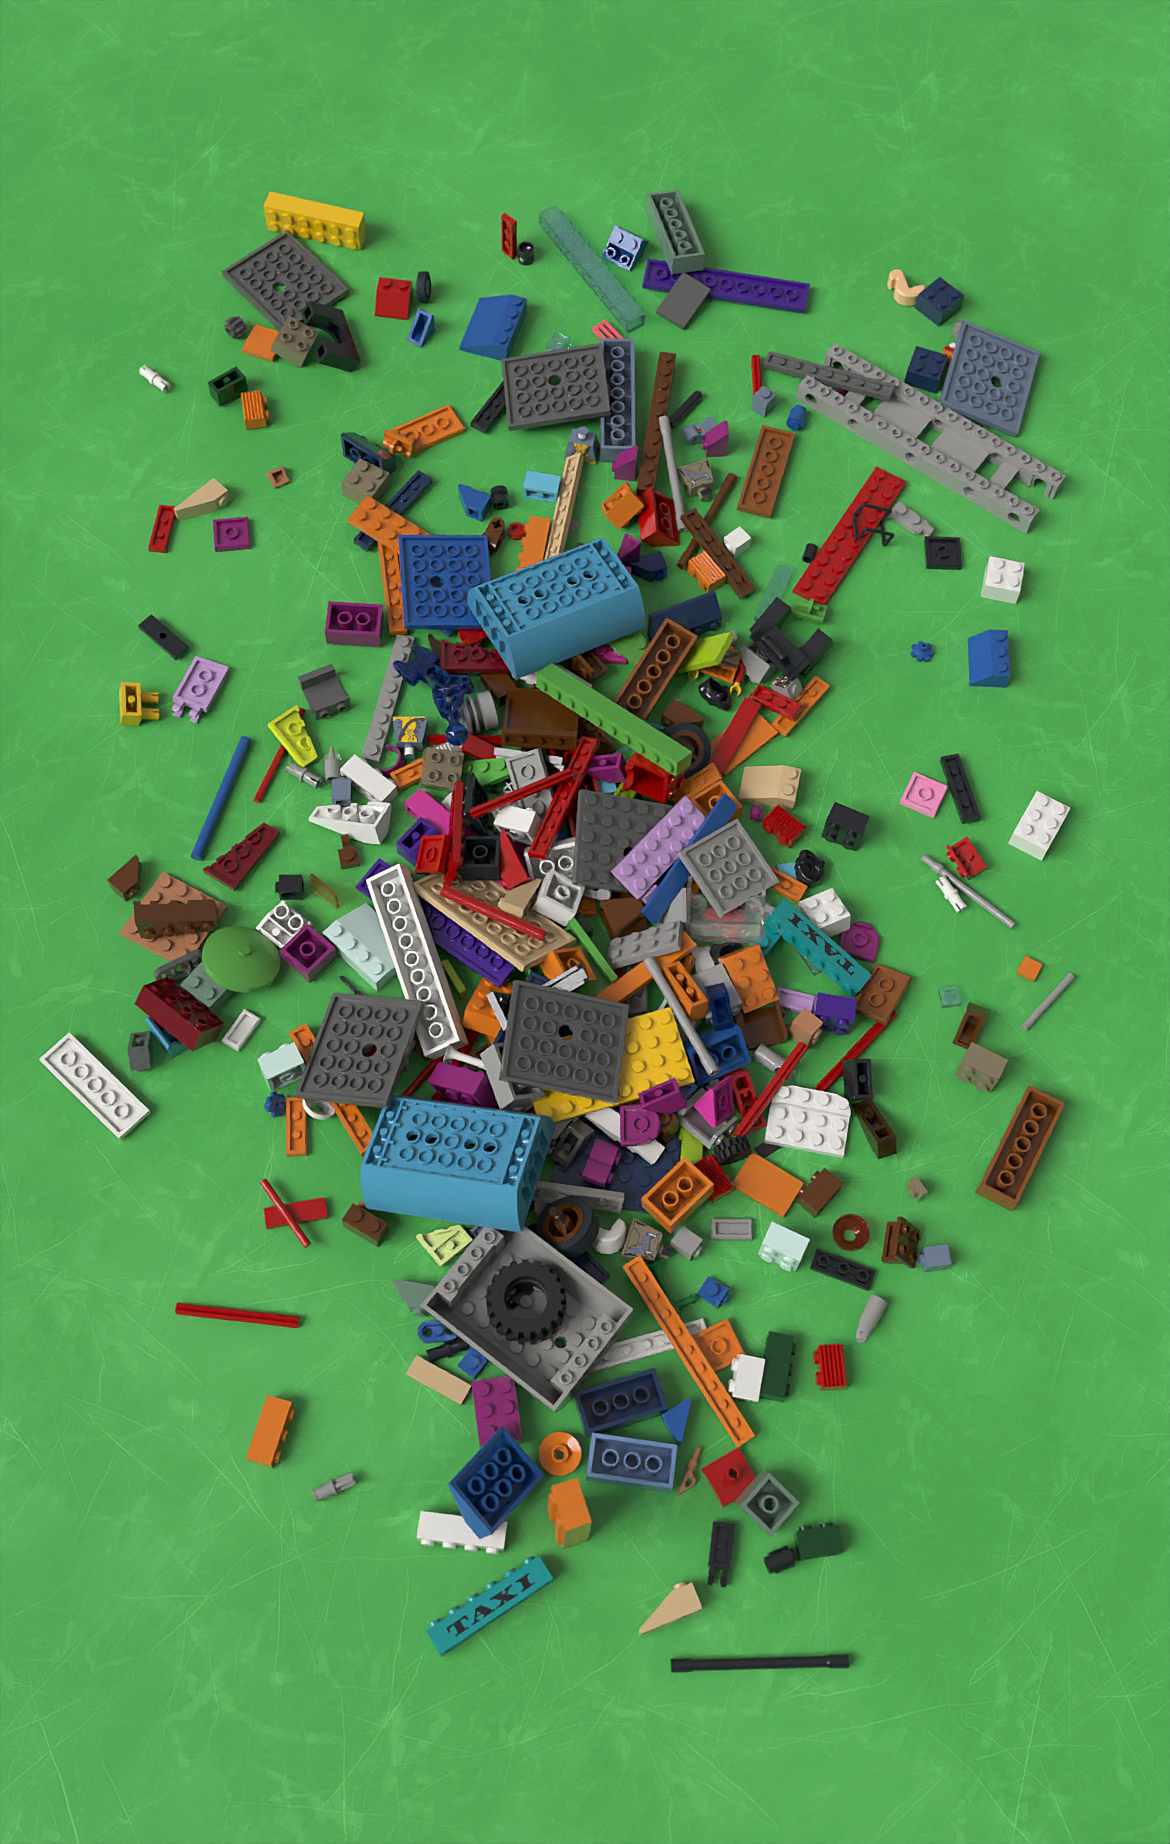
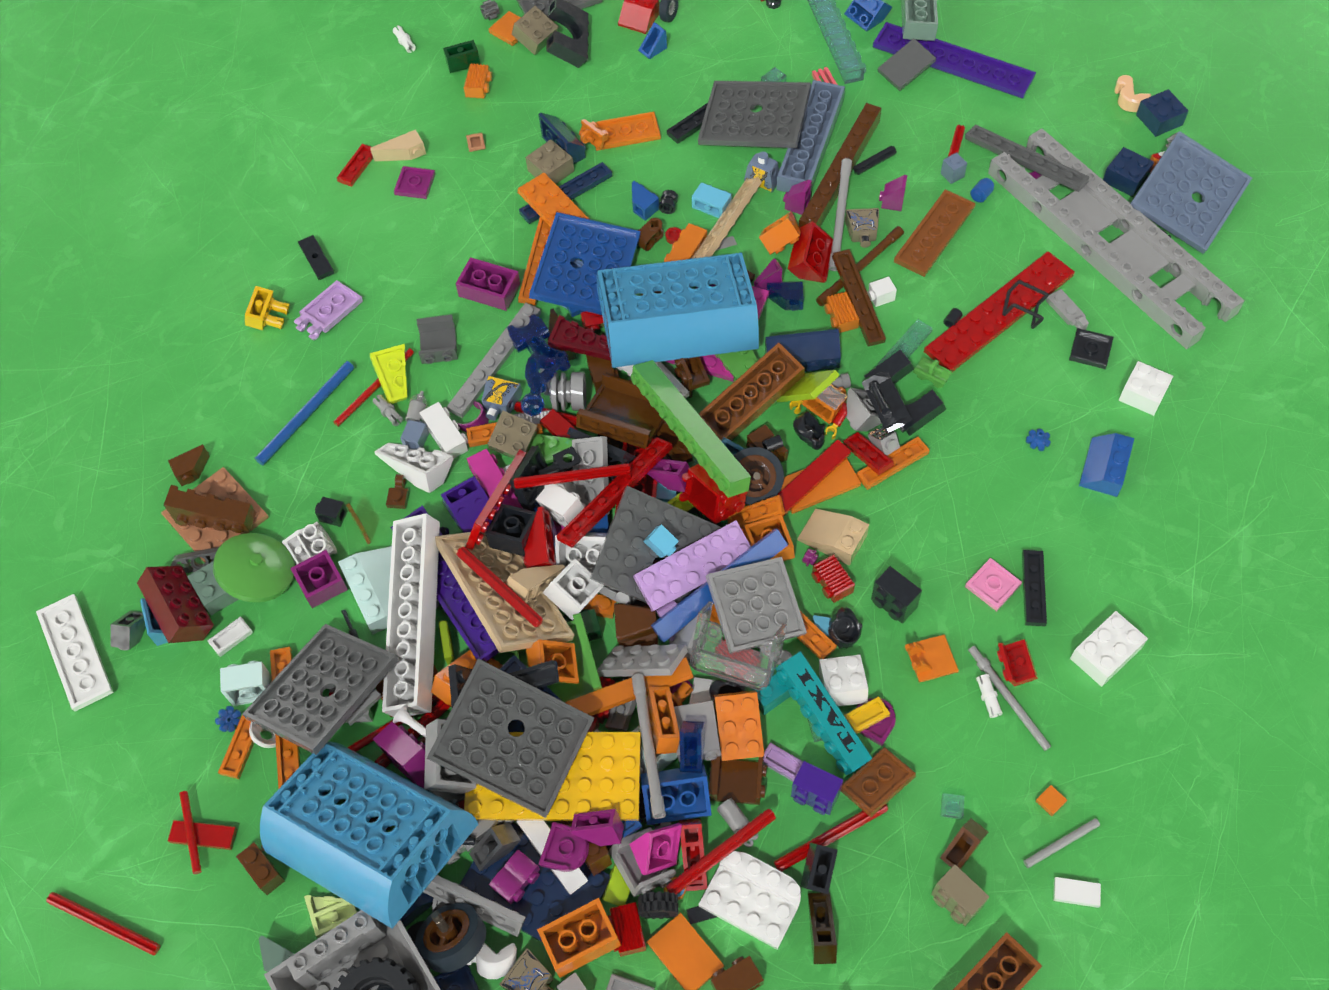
camera: 25 degrees right, 5 degrees down
(242, 857) = (292, 477): dark red wing -> none
(432, 854) = (467, 514): red plate -> none
(495, 326) = (723, 53): blue slope -> none
(499, 786) = (558, 463): none -> black bracket
(628, 832) = (661, 541): none -> medium azure brick
(689, 715) = (772, 443): none -> black hinge
(696, 433) = (876, 183): sand blue leg -> none
(806, 1028) = (781, 796): nougat brick -> none
(855, 938) = (867, 715): none -> yellow tile
(891, 875) = (931, 658): none -> orange plate
(1072, 1038) = (1077, 892): none -> white tile

